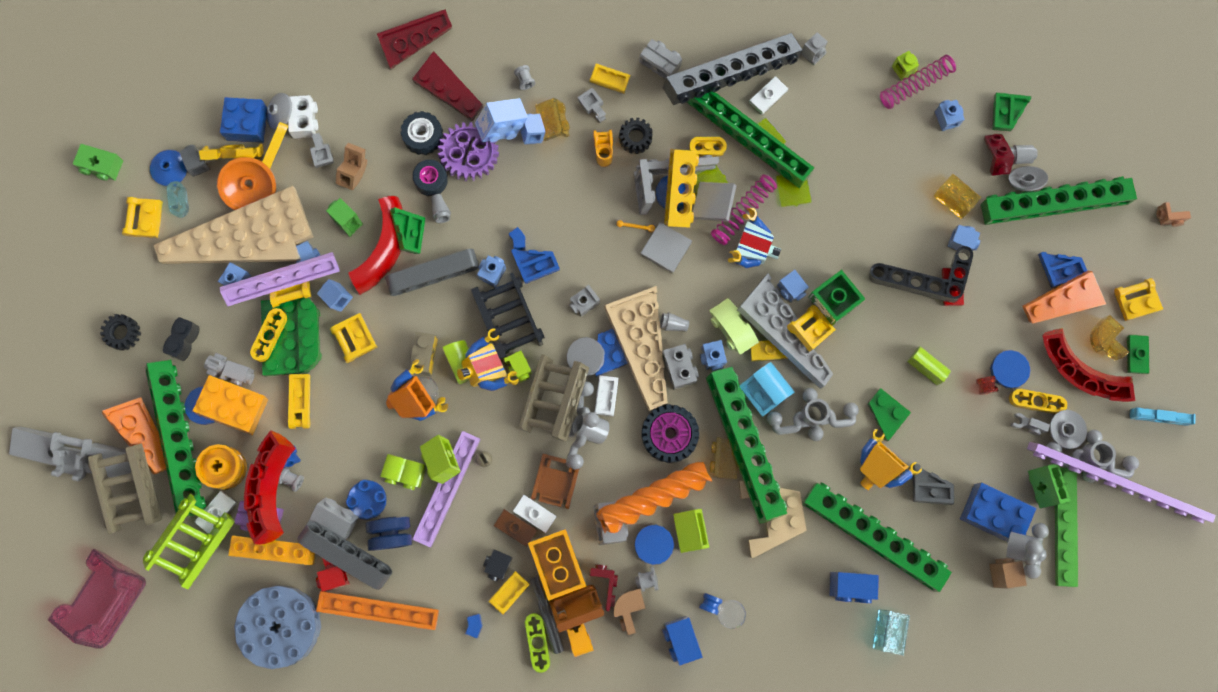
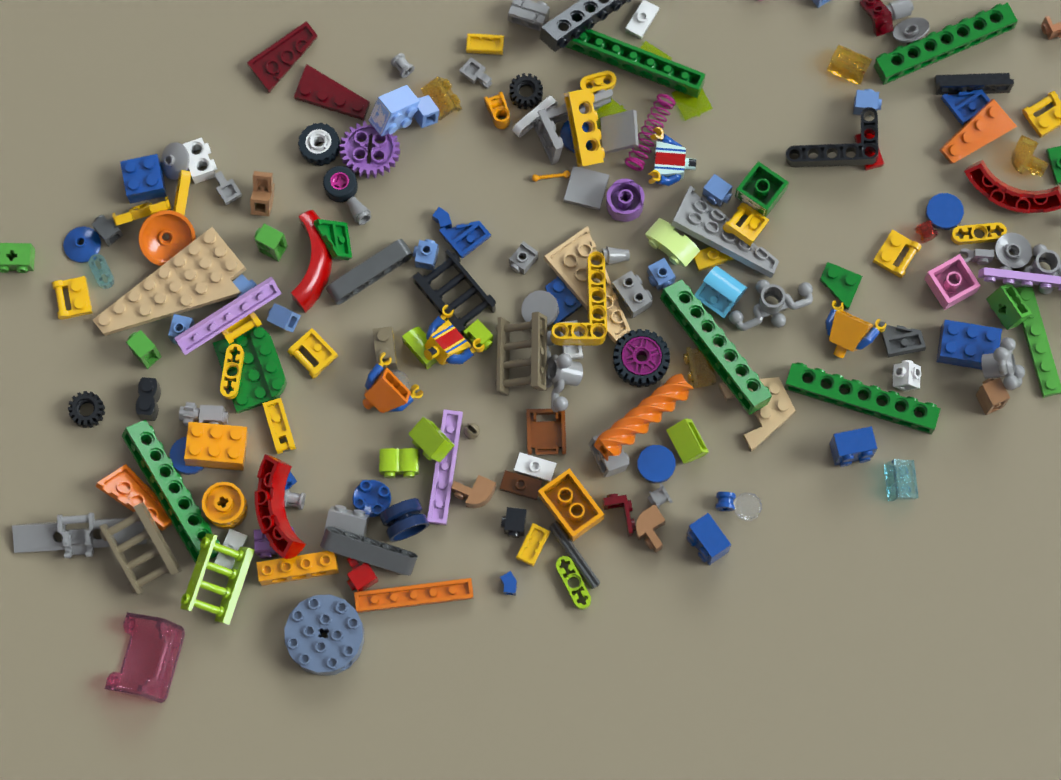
camera: 10 degrees left, 5 degrees down
(189, 288) = (143, 348): none -> bright green brick
(472, 526) = (476, 496): none -> medium nougat brick
(579, 606) = (600, 538): dark orange container -> none
(579, 641) = (612, 568): light orange piece -> none
(629, 166) = (529, 120): none -> white beam
(637, 371) = (593, 307): none -> yellow beam
(709, 267) = (634, 196): none -> medium lavender brick
(927, 527) = (906, 376): none -> white brick
(929, 366) = (866, 229): lime brick -> none
(948, 392) = (891, 250): none -> yellow plate
(999, 444) = (952, 282): none -> bright pink brick
(1059, 244) = (988, 83): none -> black fence

